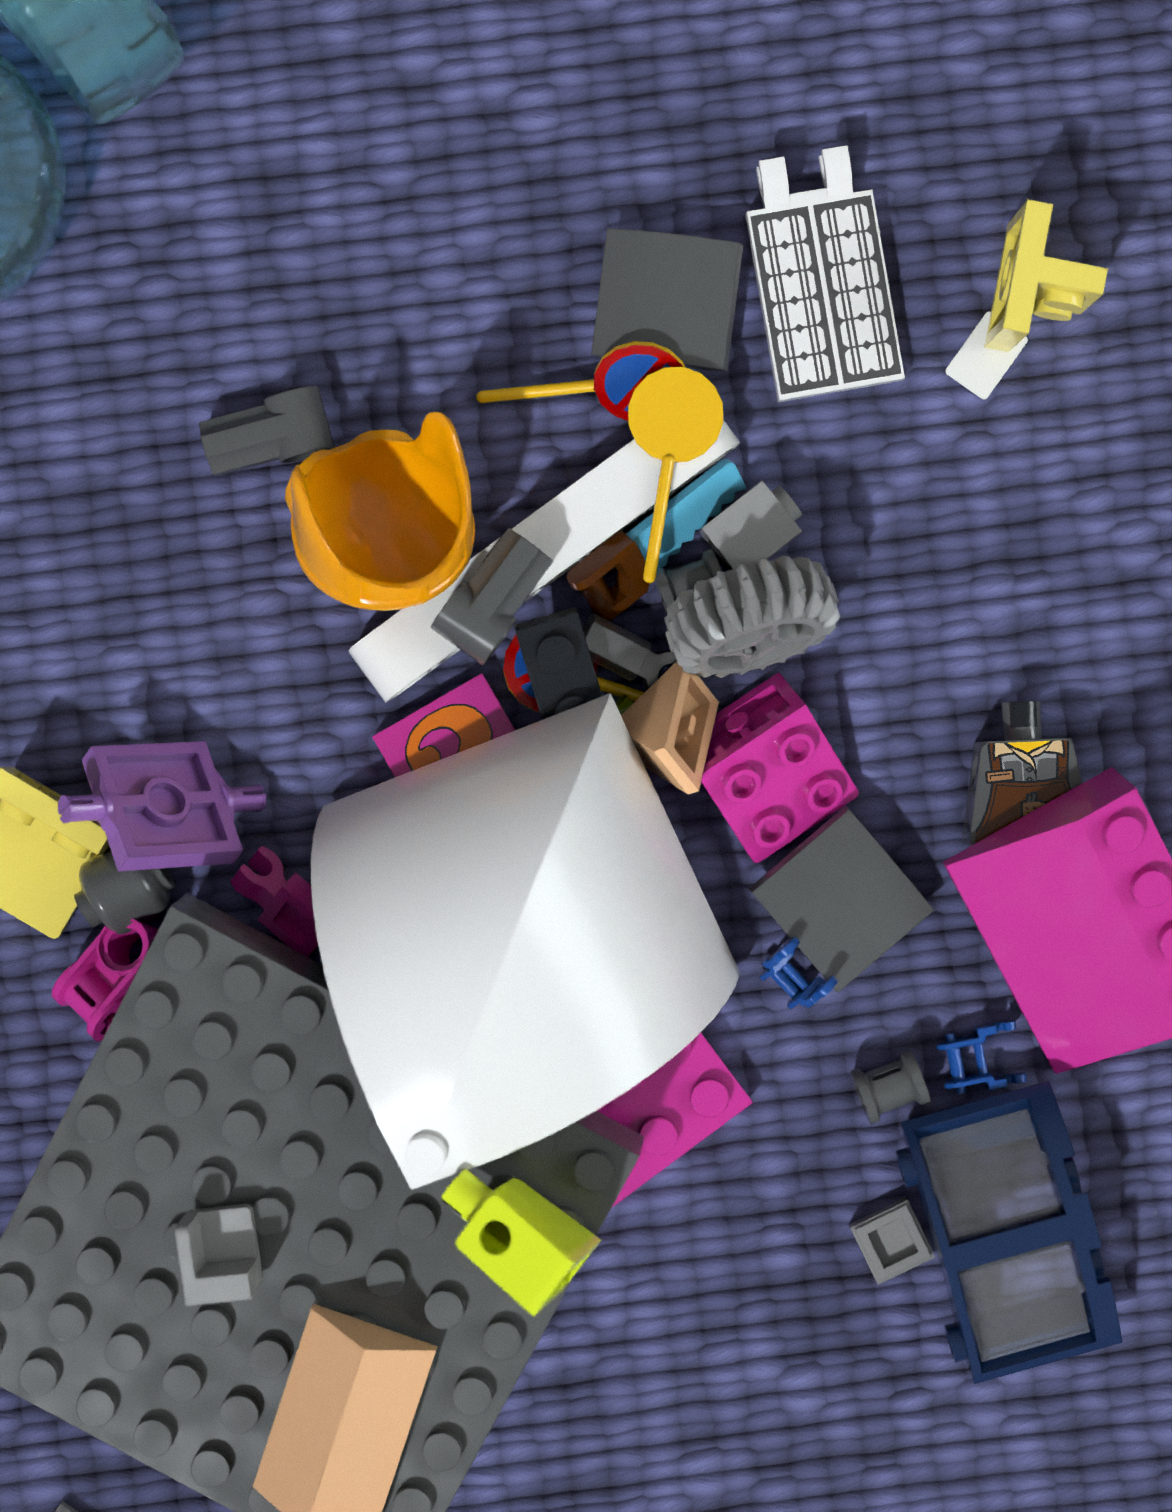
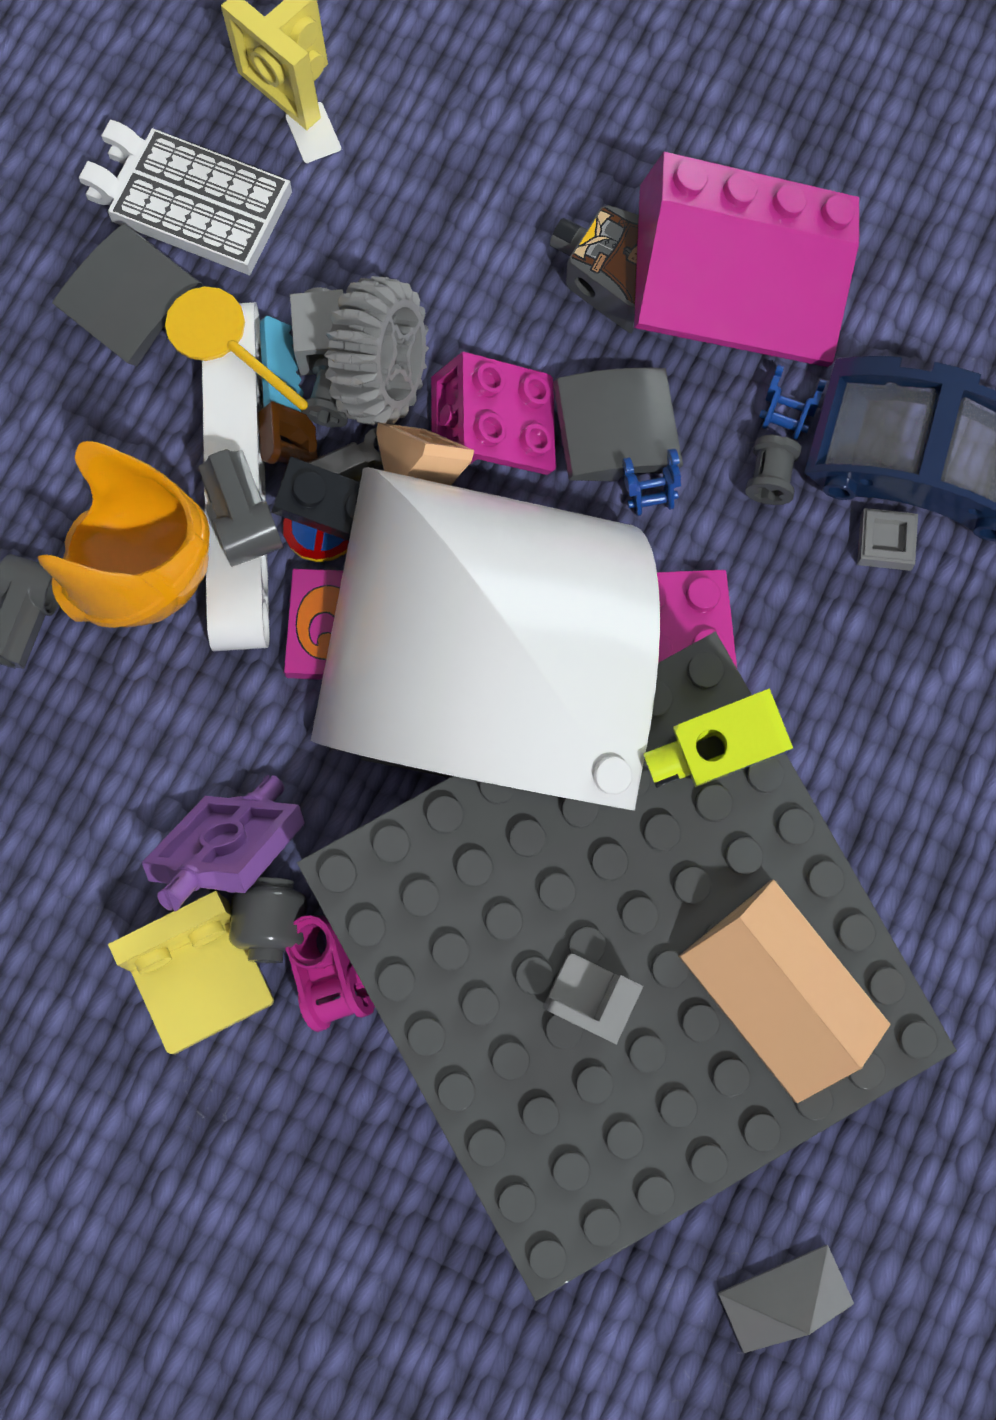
camera: 55 degrees left, 15 degrees down
(285, 903) = (364, 802): dark pink plate -> none
(613, 379) = (156, 357): piece -> none

